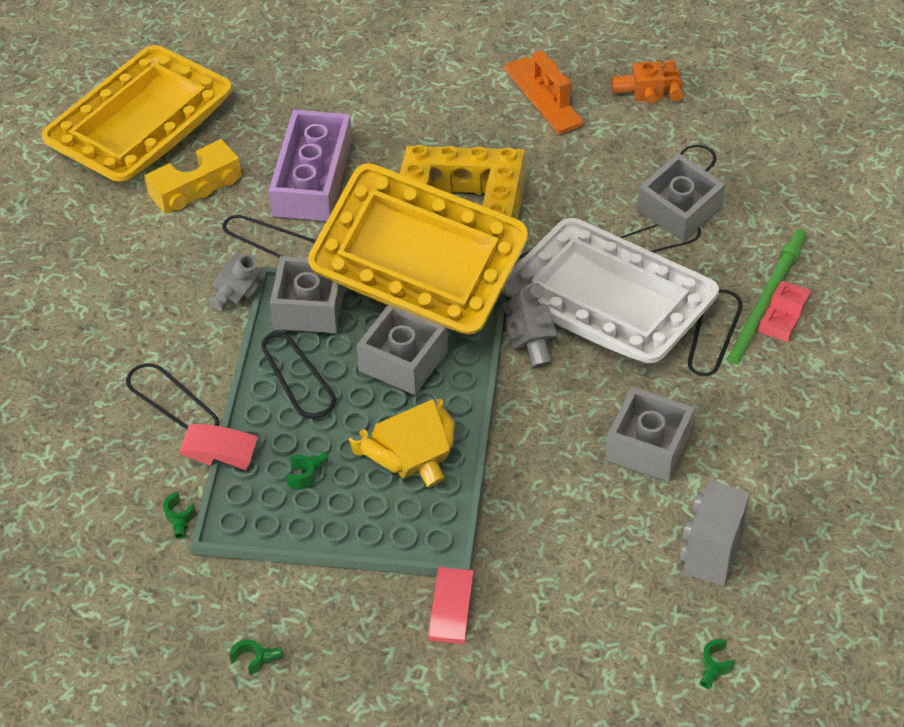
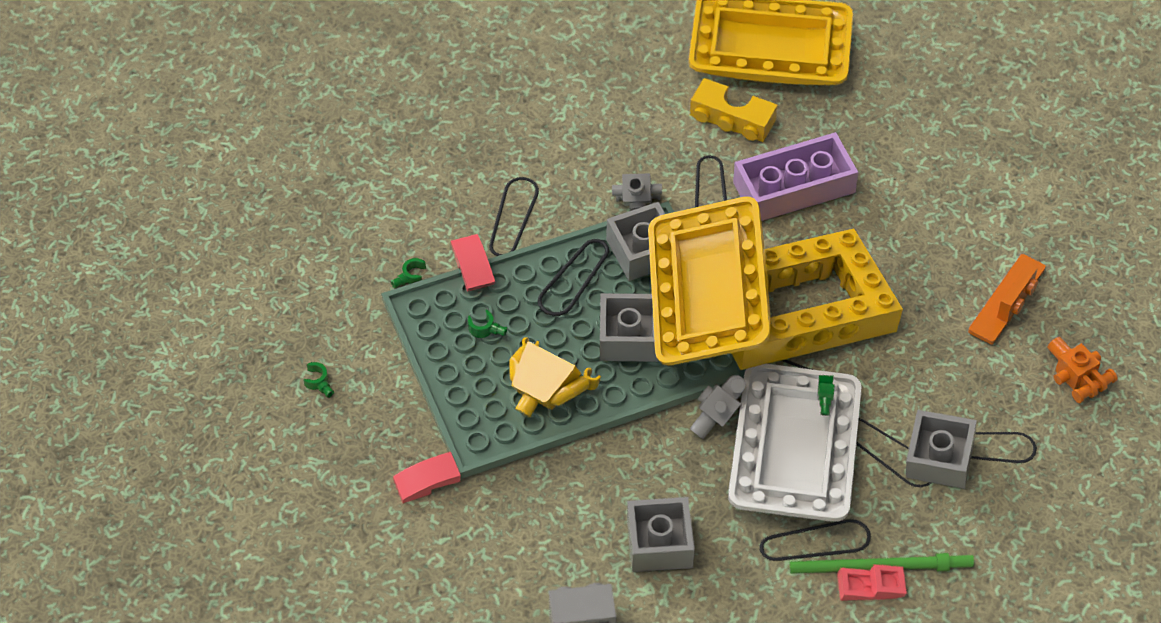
camera: 60 degrees right, 5 degrees up
(577, 242) = (825, 393): none -> green piece

